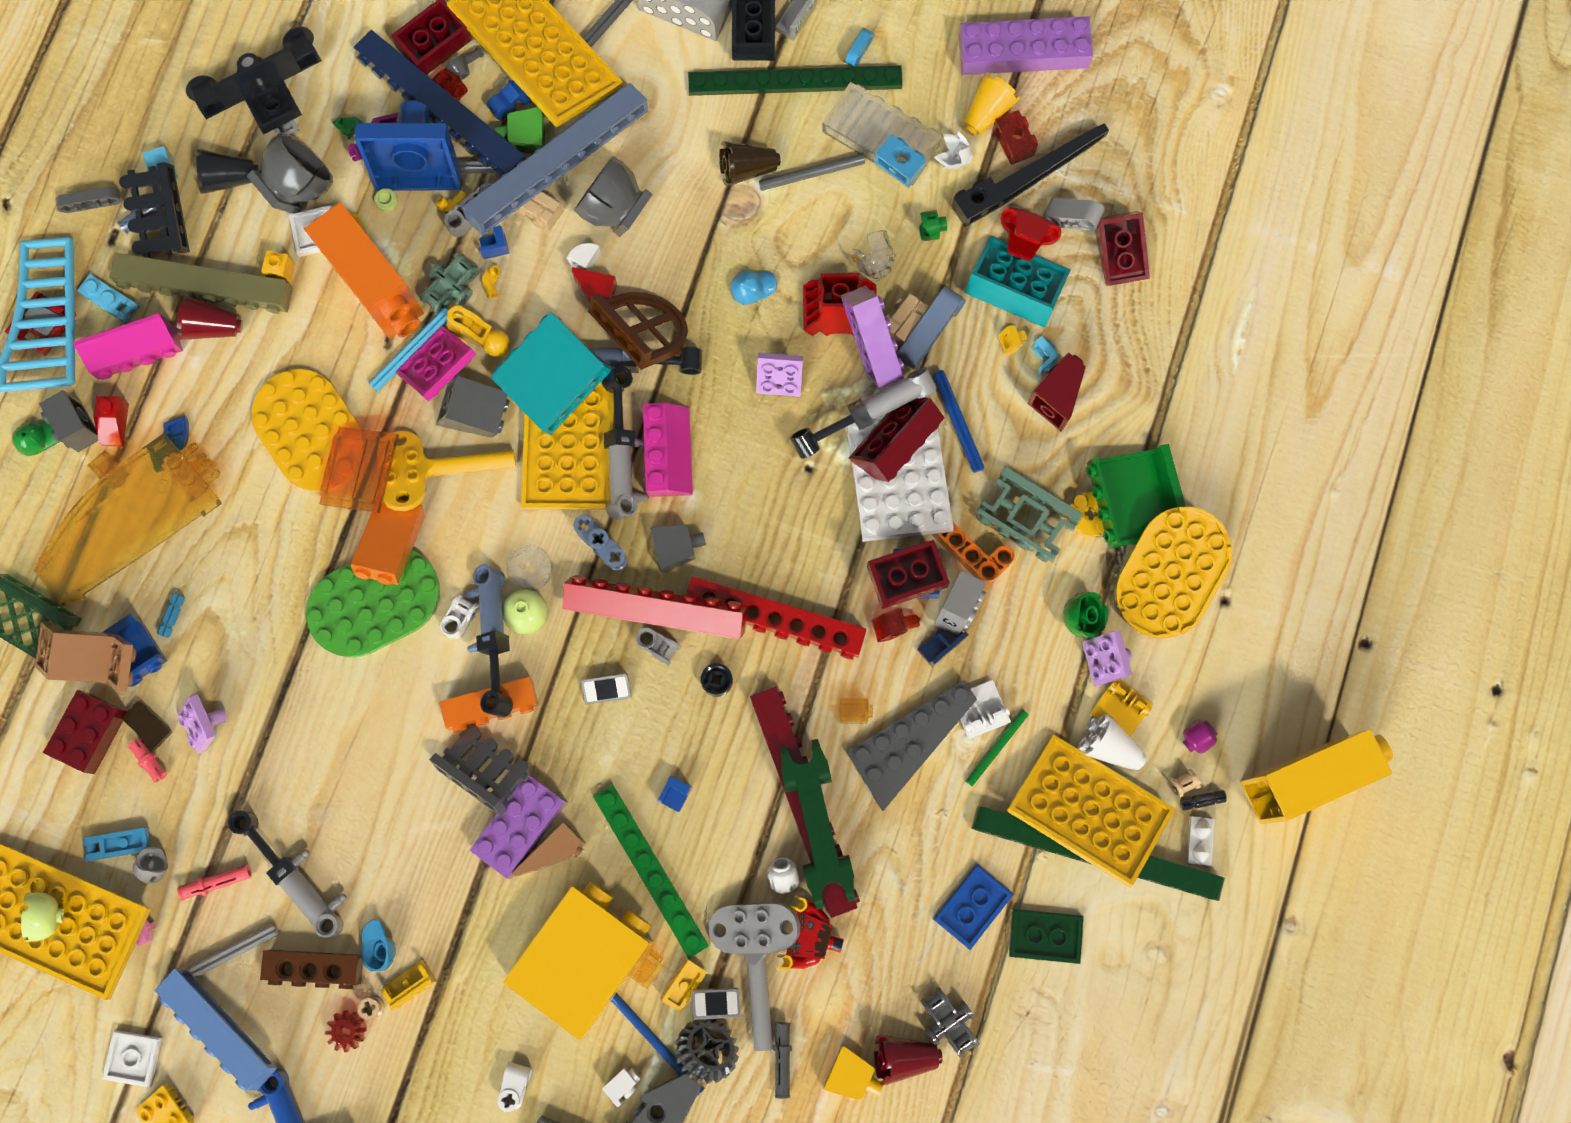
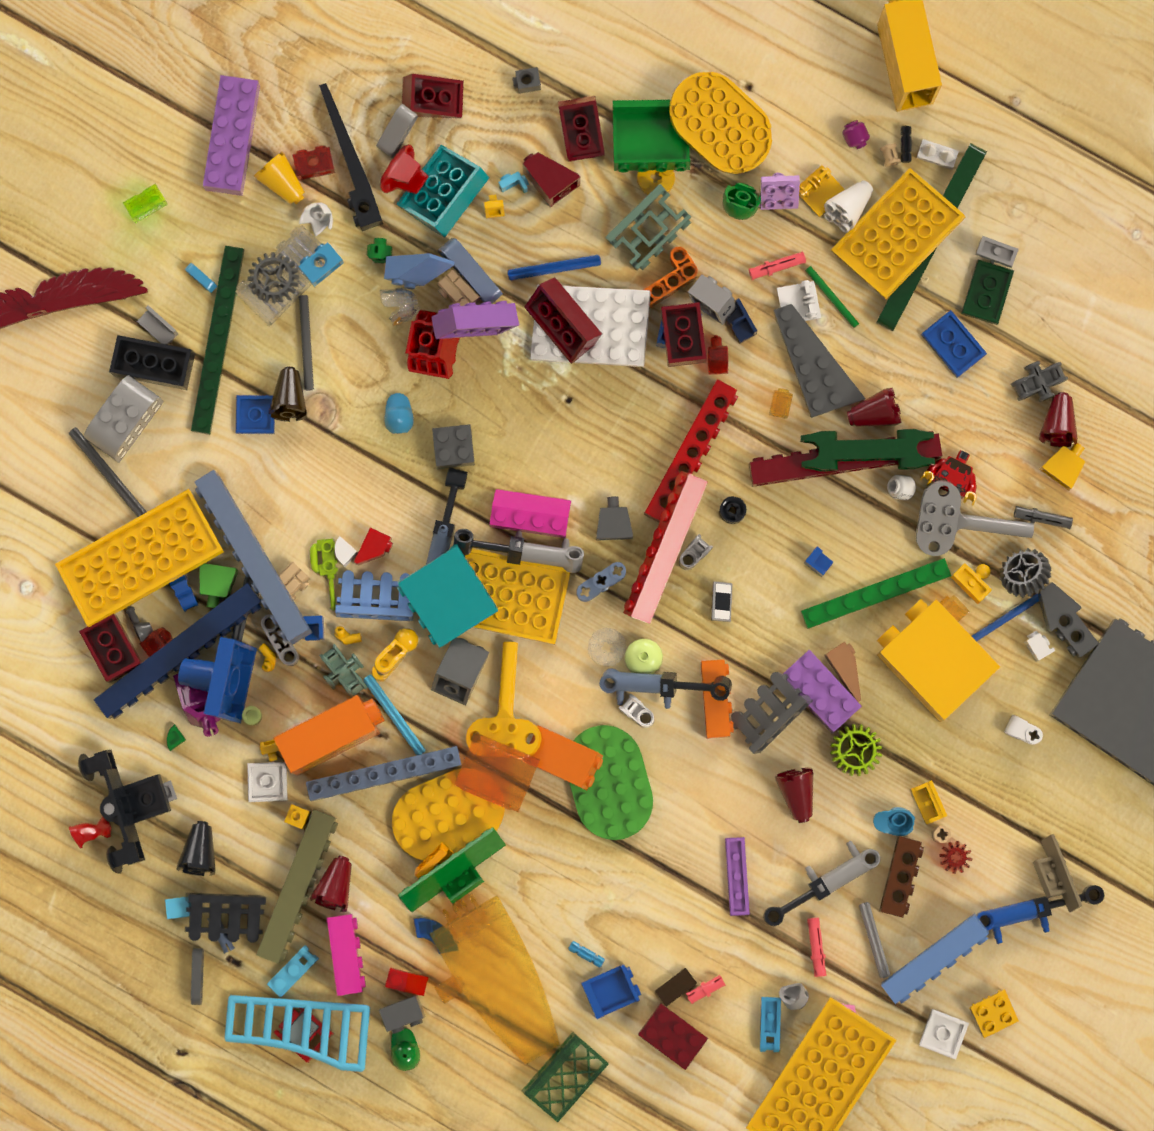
camera: 80 degrees left, 5 degrees up
(40, 916) = (820, 1082): yellowish green cylinder -> none
(85, 656) = (614, 1021): medium nougat bracket -> none
(199, 724) = (685, 939): lavender plate -> none
(227, 52) = (86, 832): none -> red animal
(236, 450) = (455, 875): none -> green bracket
(246, 425) = (437, 857): none -> light orange panel
(286, 771) = (737, 876): none -> medium lavender tile
(289, 173) = (220, 795): dark grey plate -> none
(341, 349) = (383, 773): none -> sand blue brick
(394, 821) = (797, 792): none -> dark red cone
(435, 363) = (416, 693): dark pink plate -> none
(450, 874) = (852, 741): none -> lime gear
(538, 291) = (365, 611): none -> medium blue fence
(564, 244) = (328, 568): none -> lime piece
(613, 198) = (300, 515): dark grey plate -> none
(626, 336) = (428, 526): reddish brown window -> none
(715, 129) = (254, 415): none -> blue tile
(715, 1003) = (990, 560): slope -> none
(726, 349) = (453, 446): none -> dark grey brick
(782, 370) = (485, 405): lavender plate -> none
(870, 827) = (876, 410): none -> dark red cone
(887, 123) = (278, 270): none -> dark grey gear
(916, 385) = (524, 296): piece -> none
(917, 261) = (415, 269): none -> medium blue slope
(1014, 666) = (769, 268): none -> coral pin
(1097, 937) = (997, 251): none -> light grey panel
(1127, 417) = (581, 128): none -> dark red slope
(1166, 355) = (531, 73): none -> dark grey brick

